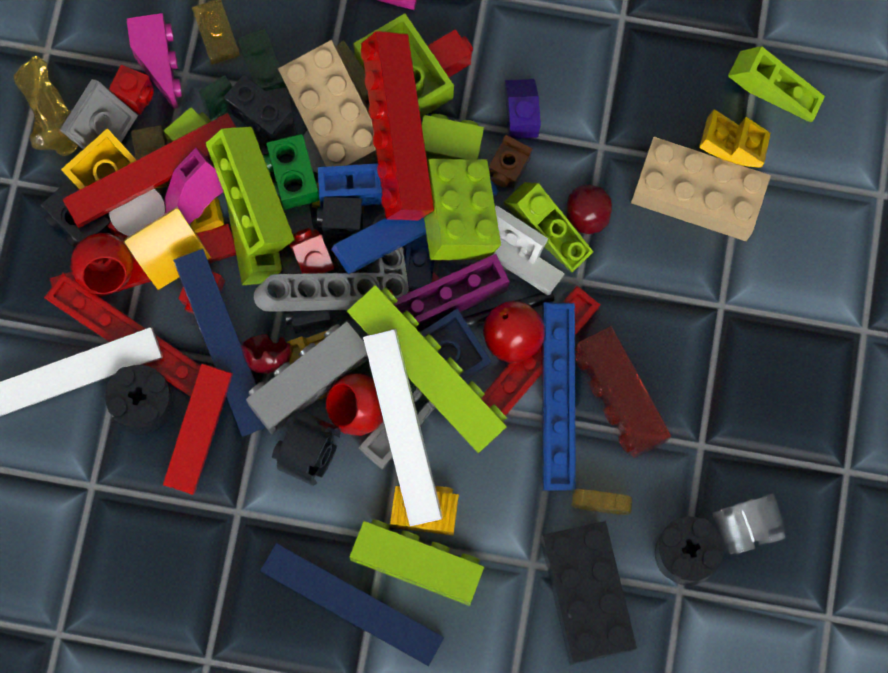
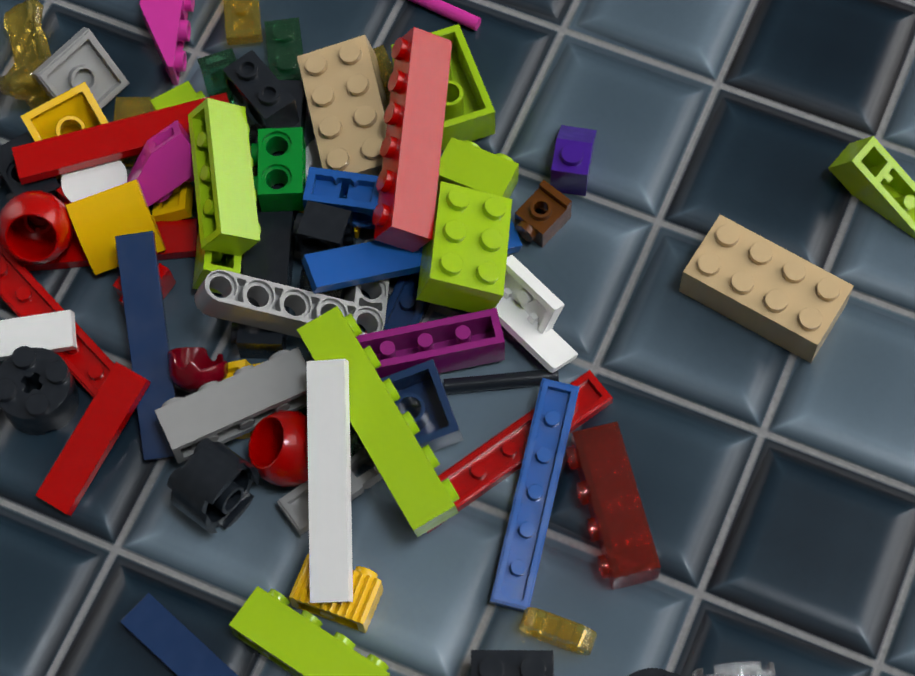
camera: 20 degrees right, 10 degrees down
(132, 88) = (130, 51): red brick -> none
(311, 252) = (278, 261): bracket -> none
(452, 52) = (505, 82): red brick -> none
(513, 331) = (497, 403): red helmet -> none
(537, 210) = (565, 277): lime slope -> none
(589, 209) = (625, 286): dark red hair -> none
(735, 143) = (818, 243): yellow slope -> none

